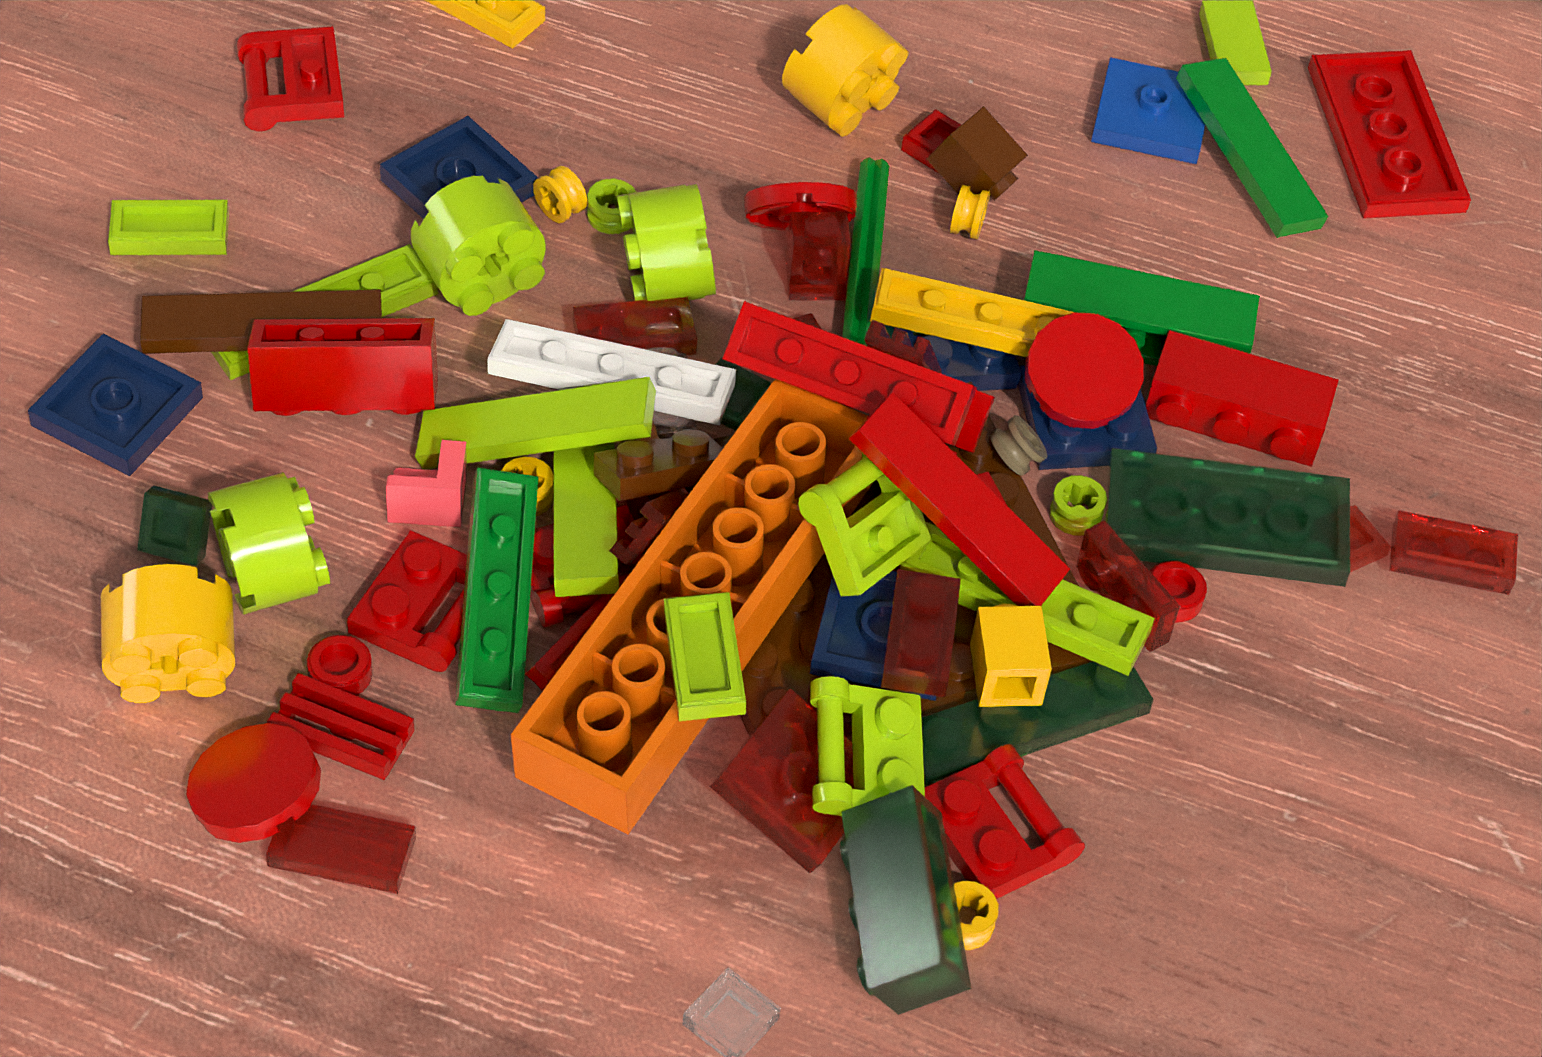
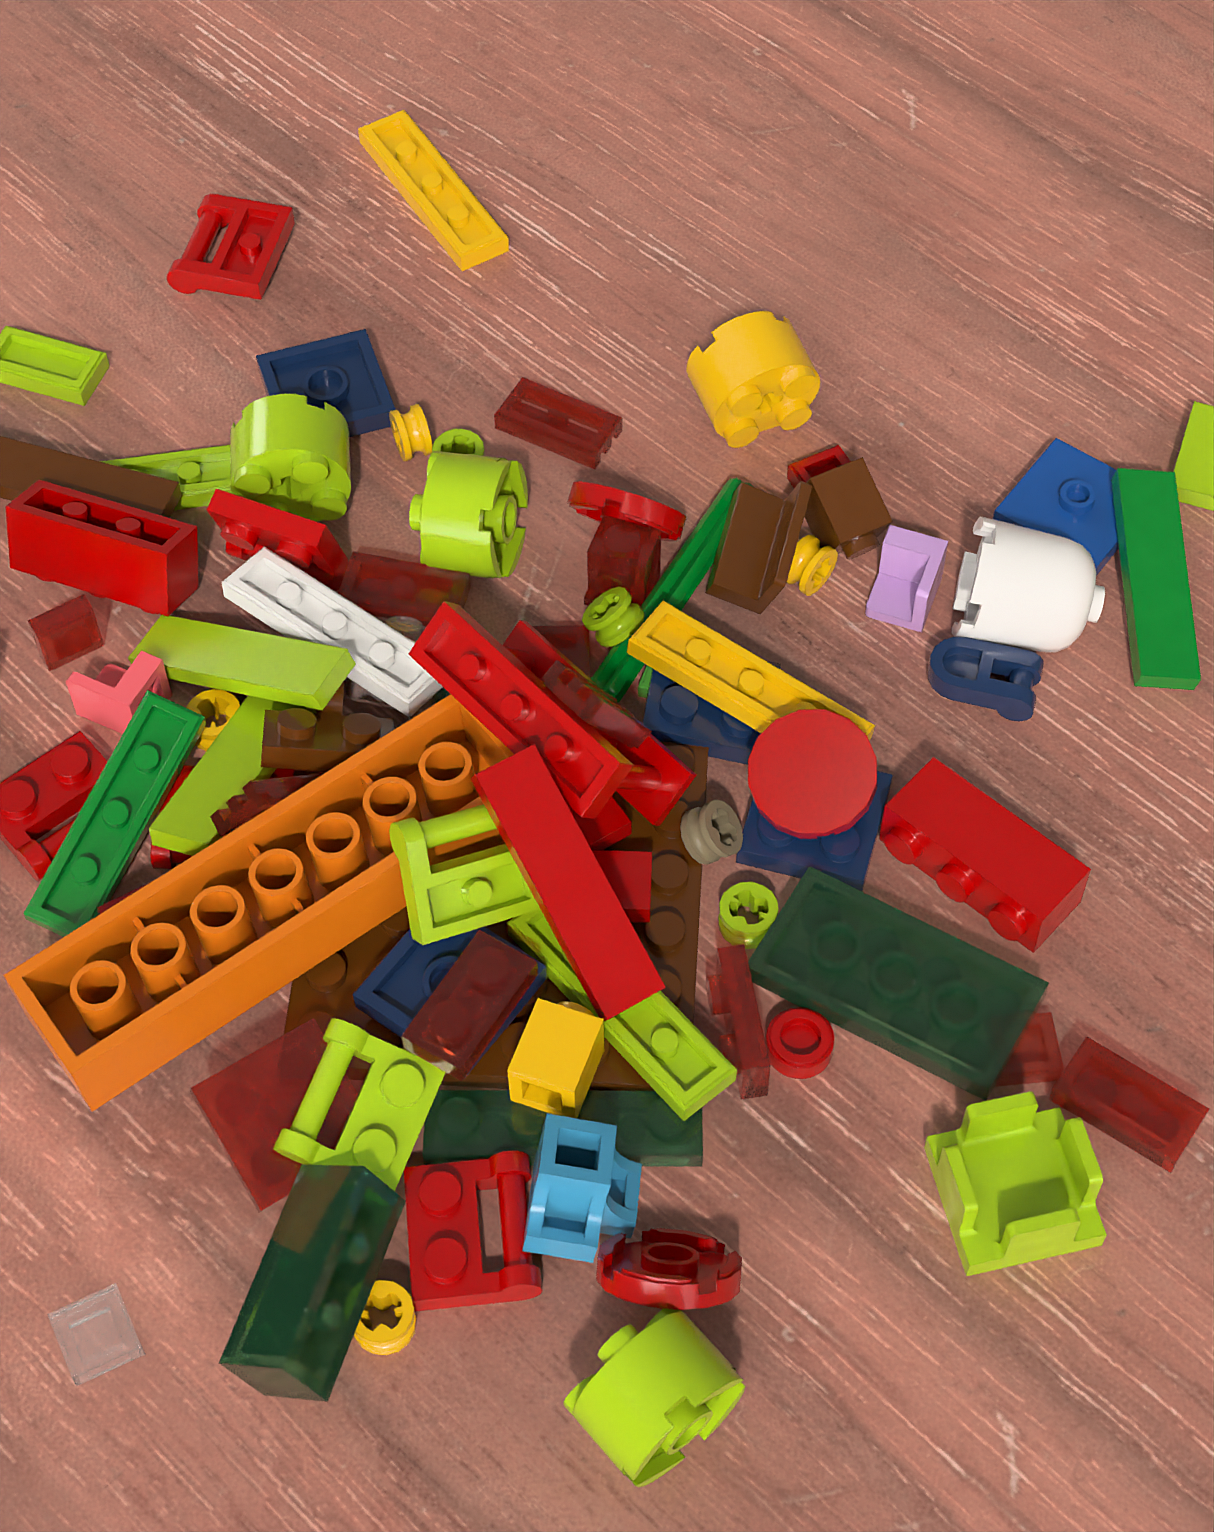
camera: 30 degrees right, 5 degrees up
(347, 450) = (66, 632): none -> clear red tile
(482, 304) = (300, 541): none -> red plate
(680, 154) = (553, 428): none -> clear red tile
(704, 656) = (217, 960): lime tile -> none
(833, 298) = (613, 617): none -> lime bush
(926, 205) = (757, 546): none -> reddish brown panel
(1056, 200) = (907, 578): none -> lavender panel
(1075, 754) = (579, 1189): none -> dark azure brick
(1144, 302) = (927, 720): green brick -> none
(1151, 254) = (962, 671): none -> dark blue plate
(1160, 179) = (1026, 588): none -> white cylinder
(1188, 787) = (669, 1269): none -> red tile
(1239, 884) = (655, 1395): none -> lime brick
(1405, 639) = (1017, 1184): none -> lime panel

